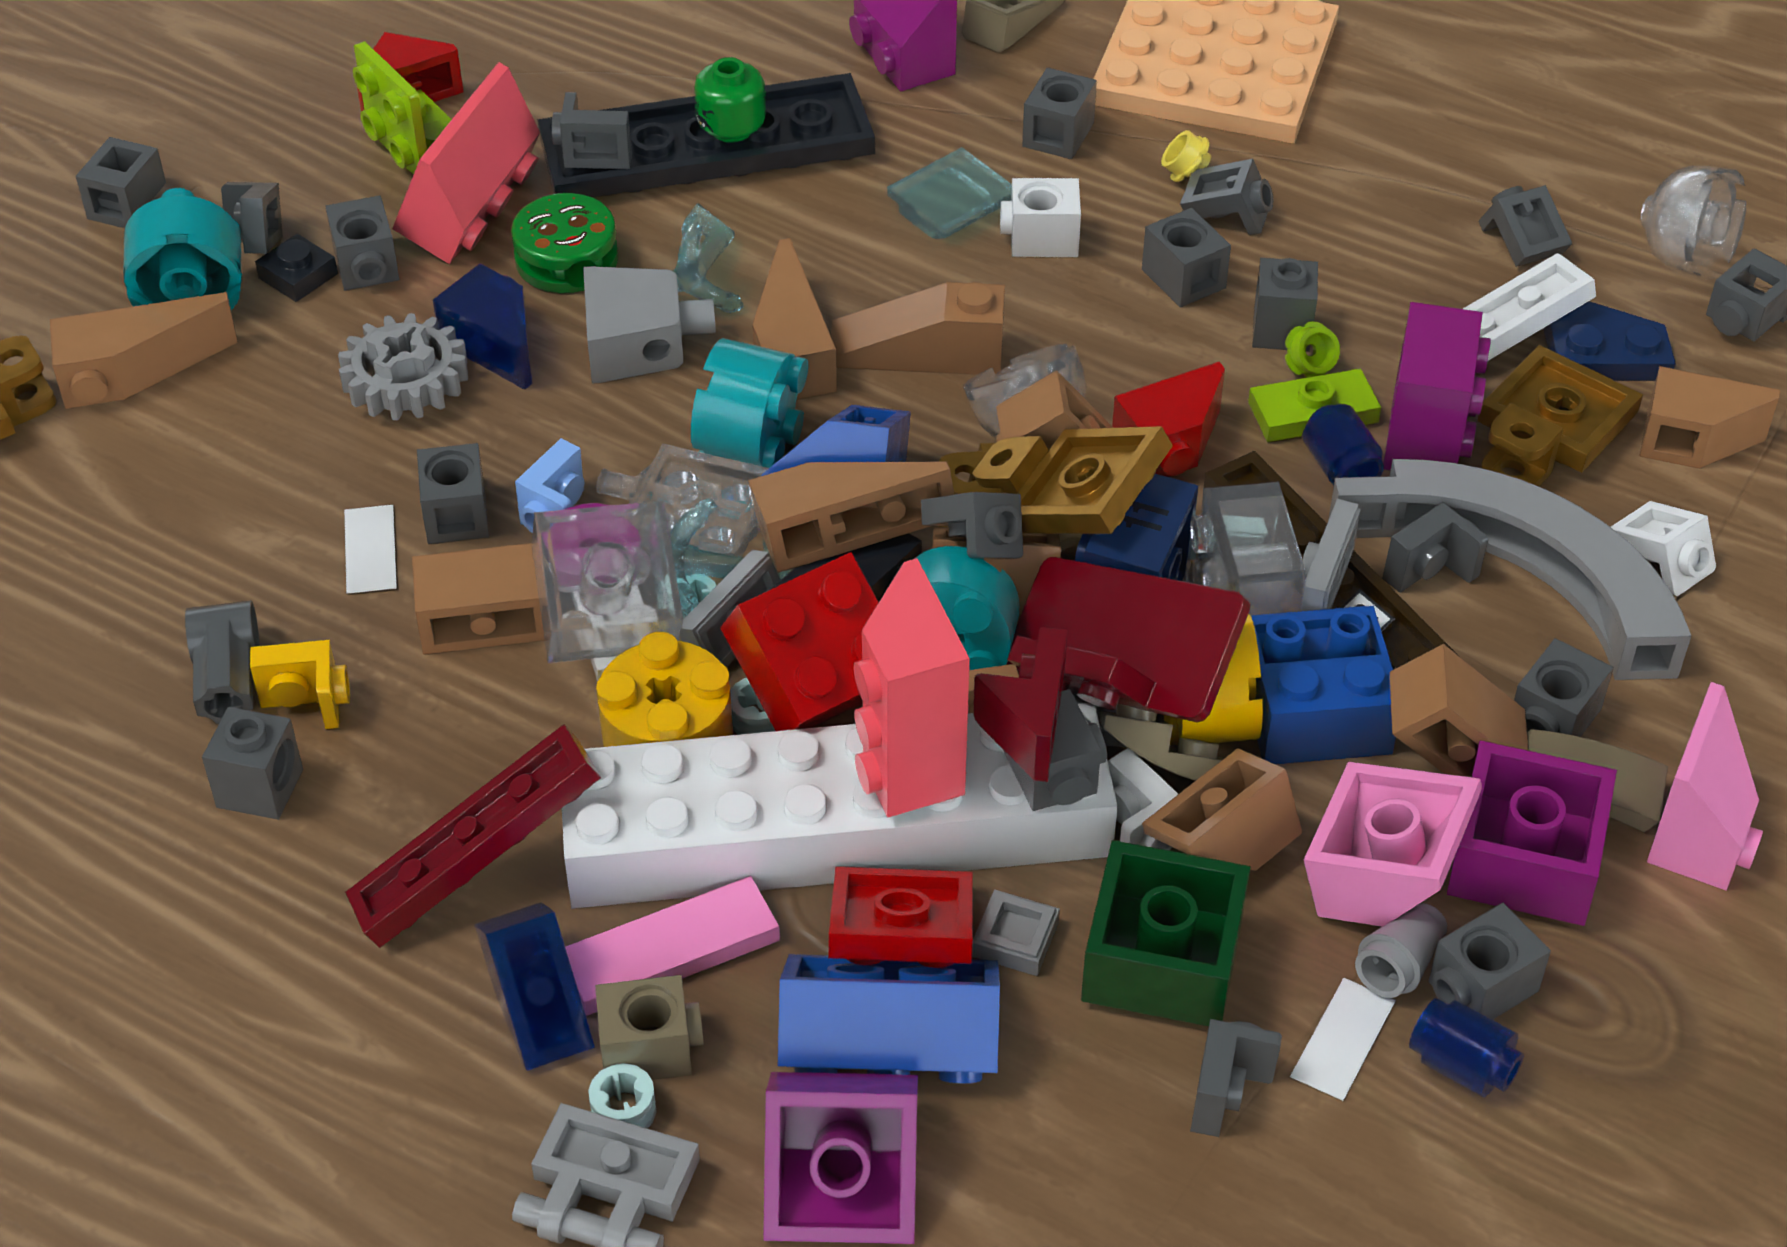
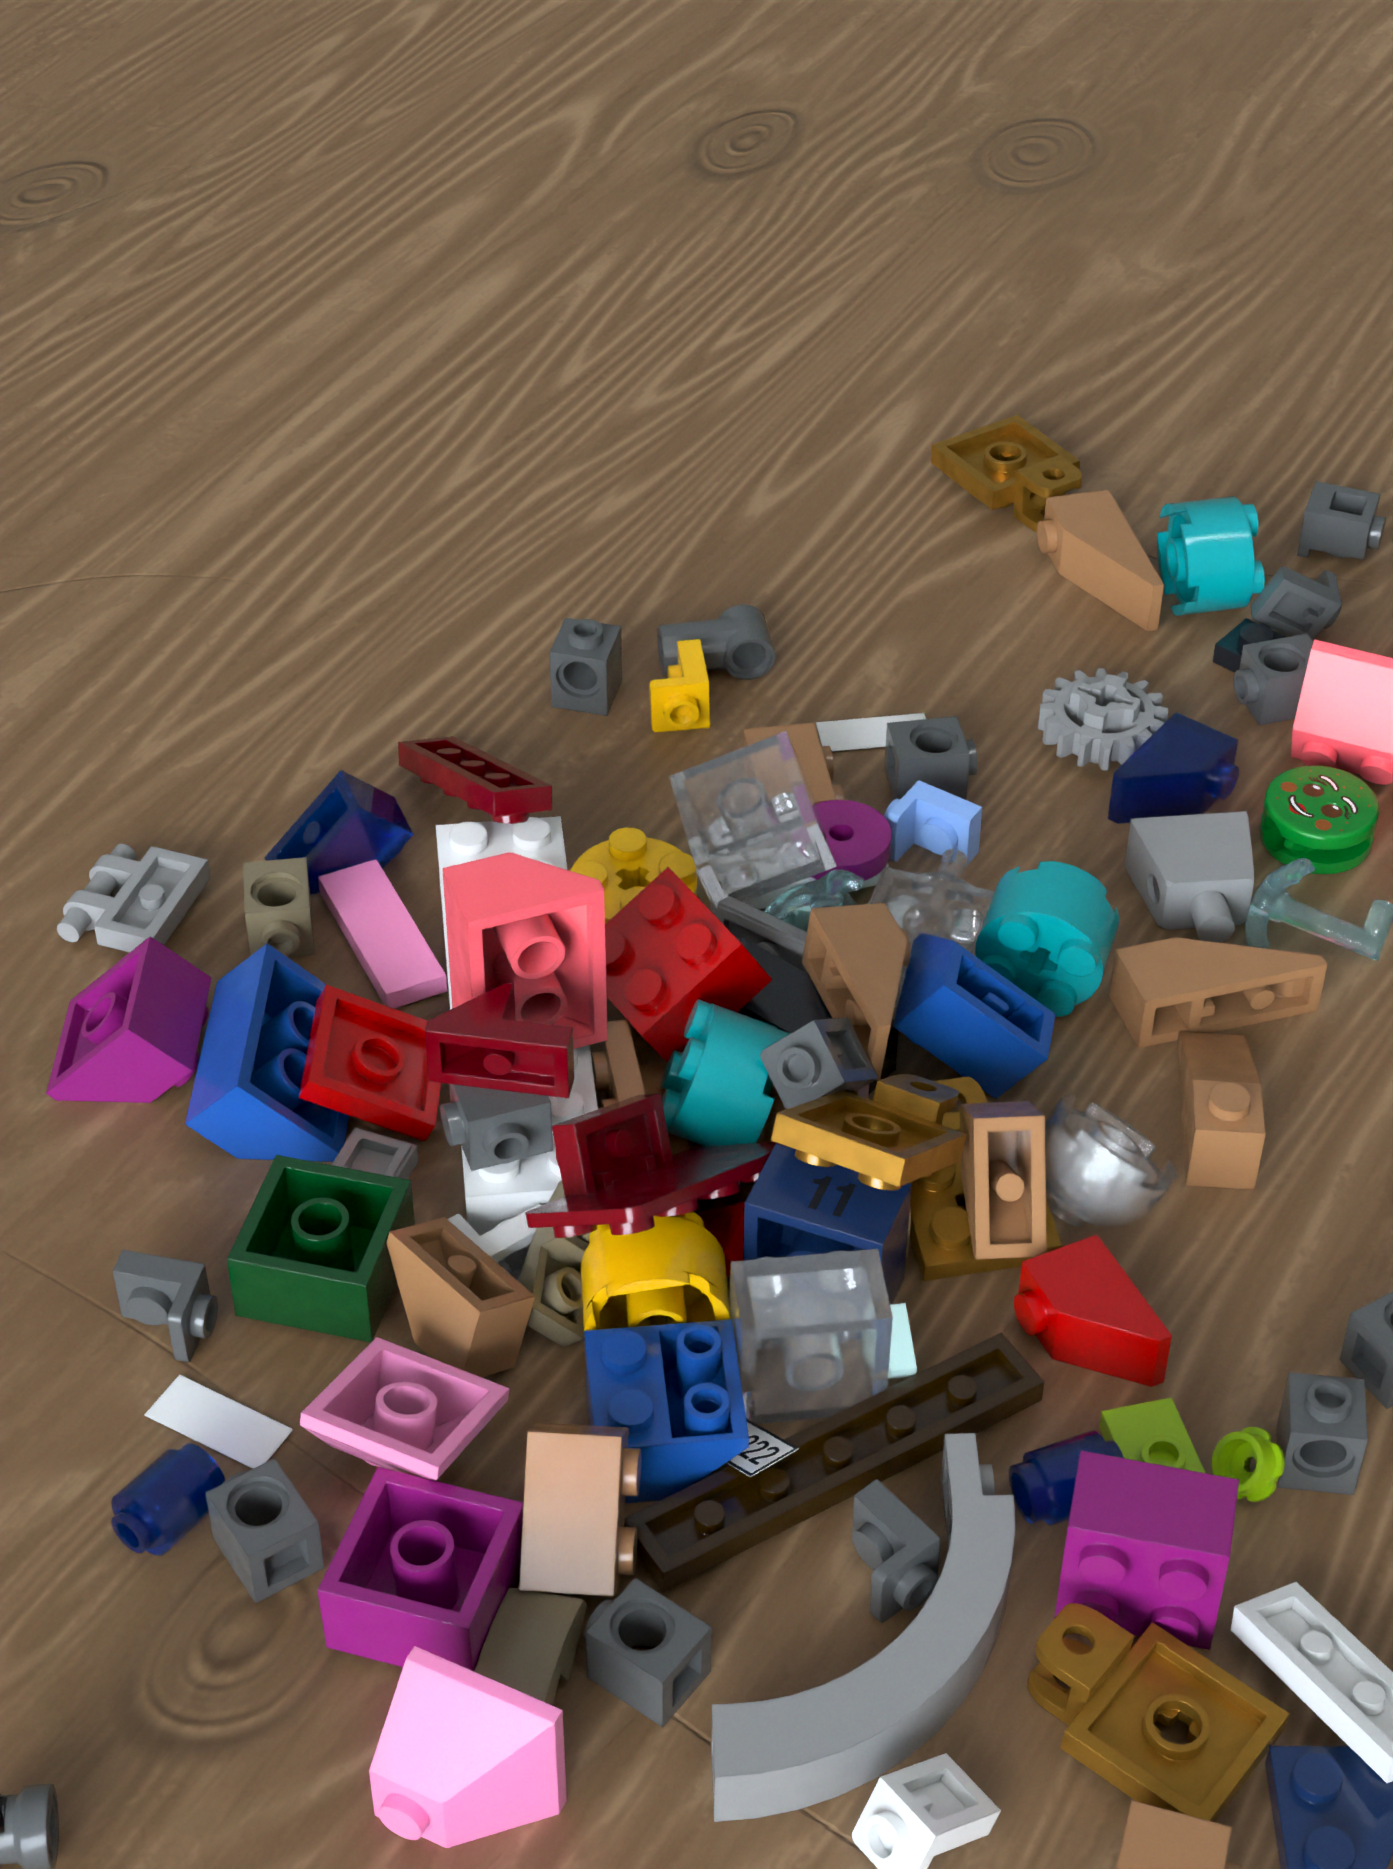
camera: 90 degrees right, 5 degrees down
(622, 1079) = (218, 909): light aqua bush -> none
(1328, 561) = (818, 1406): light grey plate -> none
(1400, 951) = (305, 1459): light grey cone -> none

